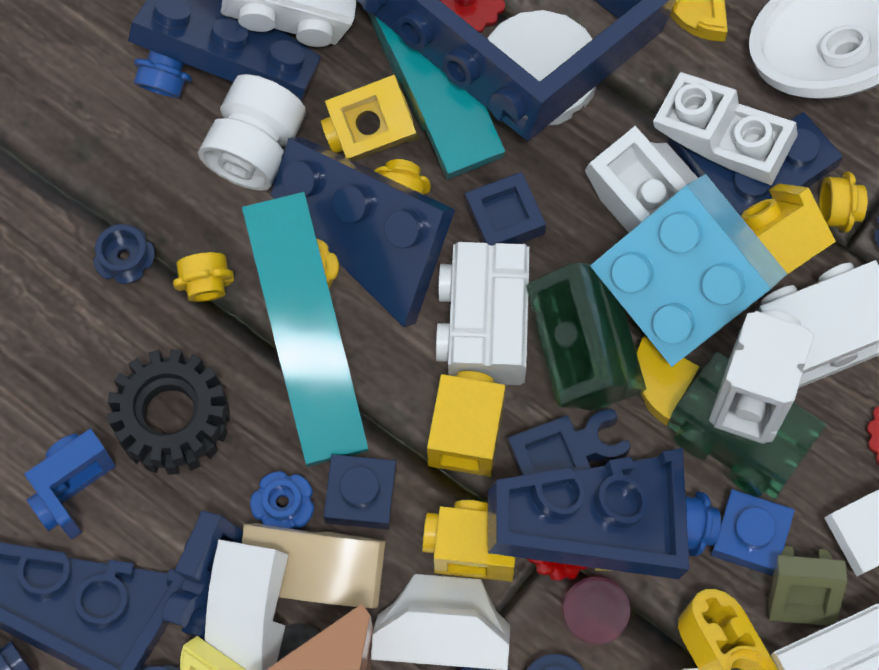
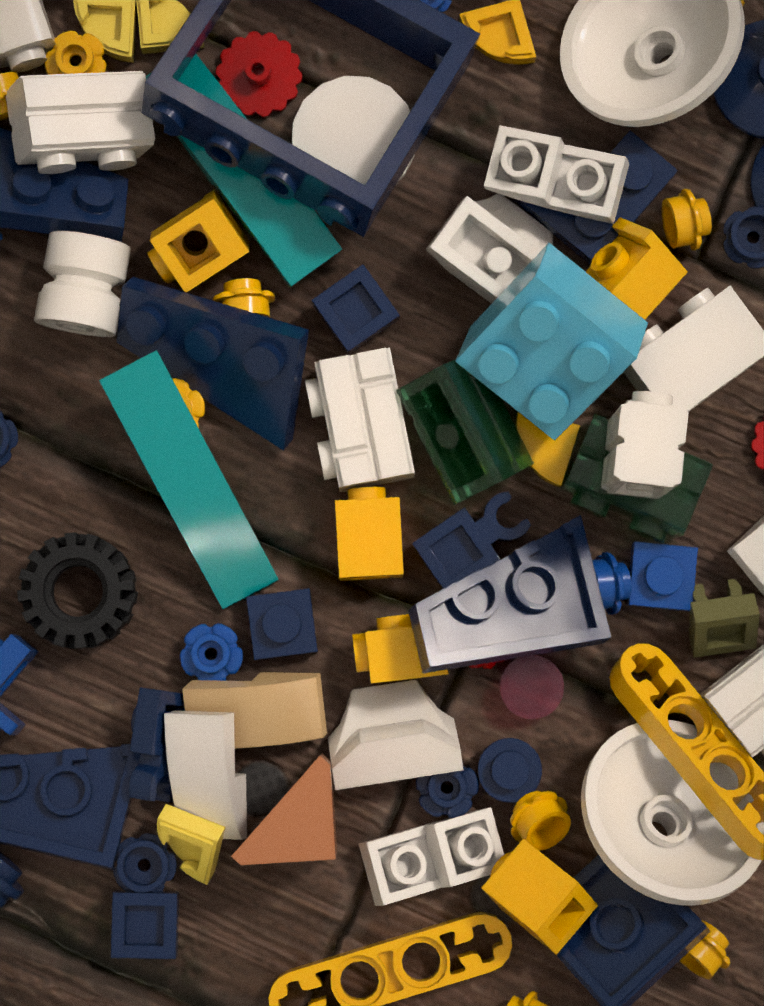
camera: 20 degrees left, 15 degrees up
(203, 276) = (73, 445): yellow plate -> none

